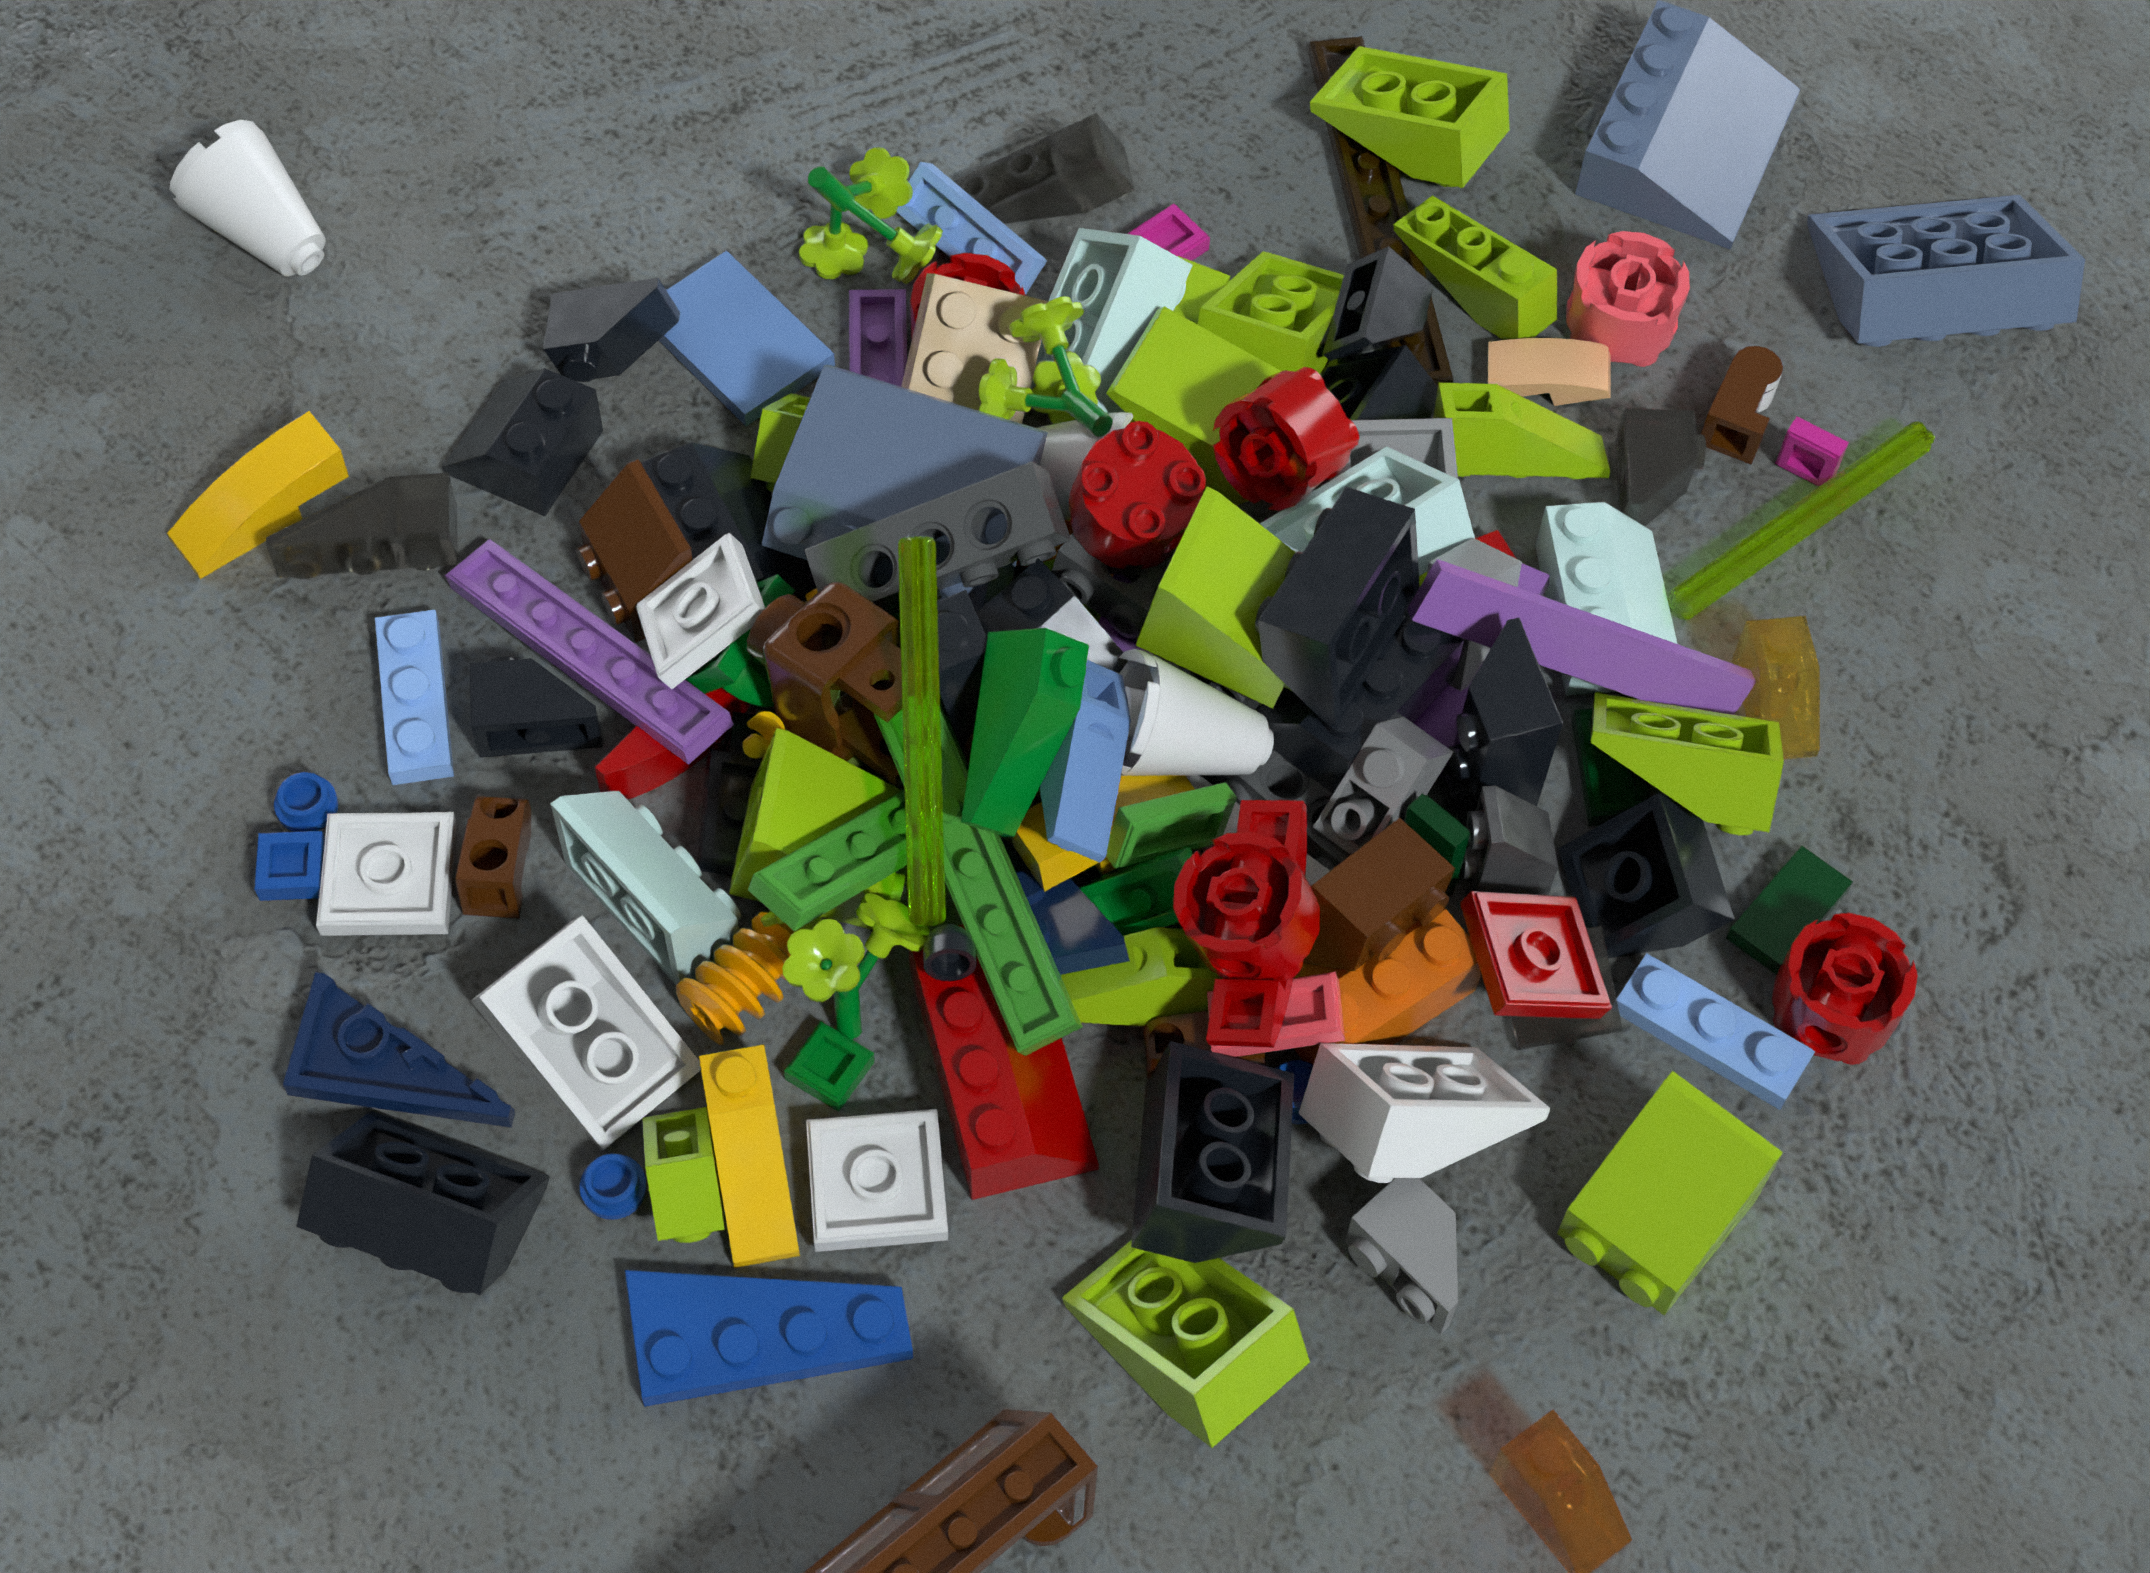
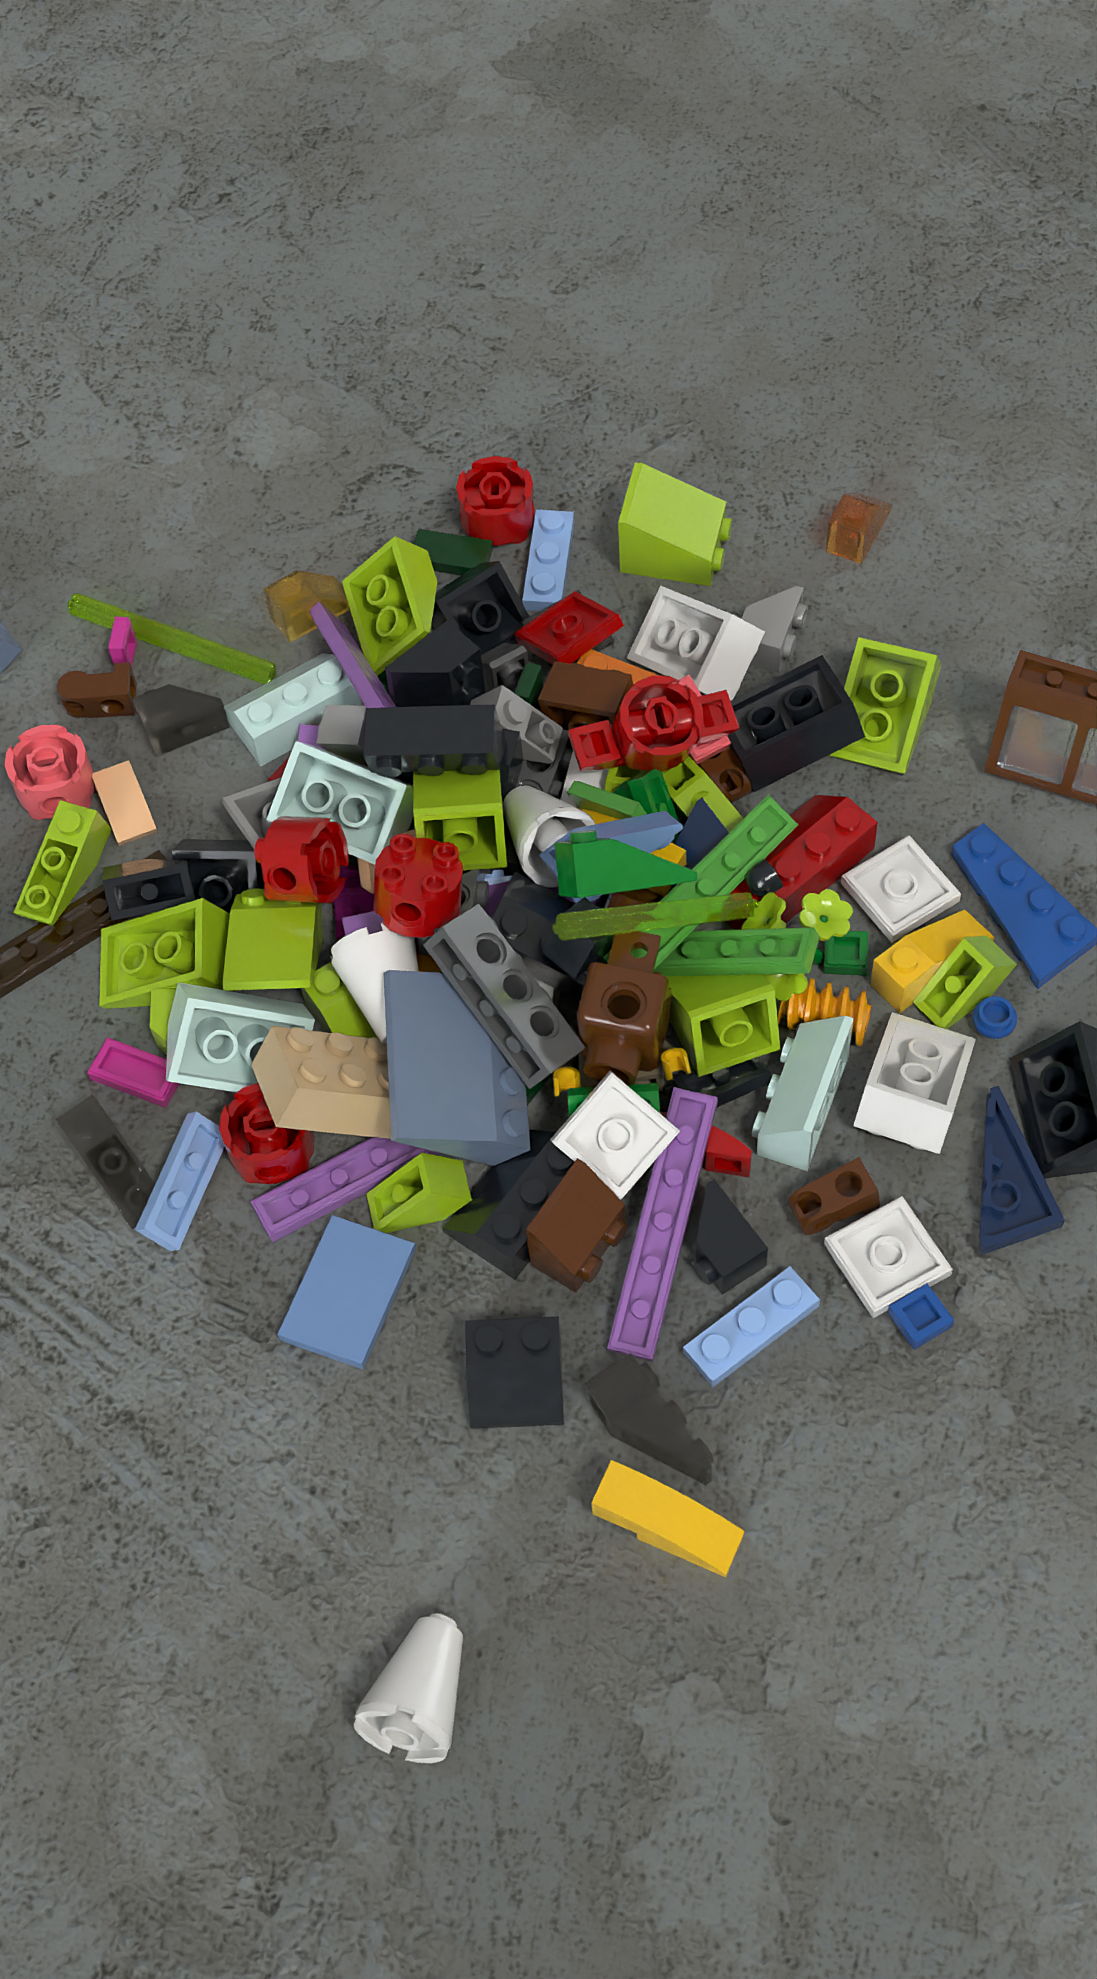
camera: 110 degrees left, 0 degrees up
(305, 802) = (870, 1340): blue plate -> none
(606, 327) = (400, 1364): black slope -> none
(877, 185) = (230, 1272): lime plant -> none
(1062, 386) = (312, 1011): lime plant -> none
(1515, 437) = (196, 793): lime slope -> none

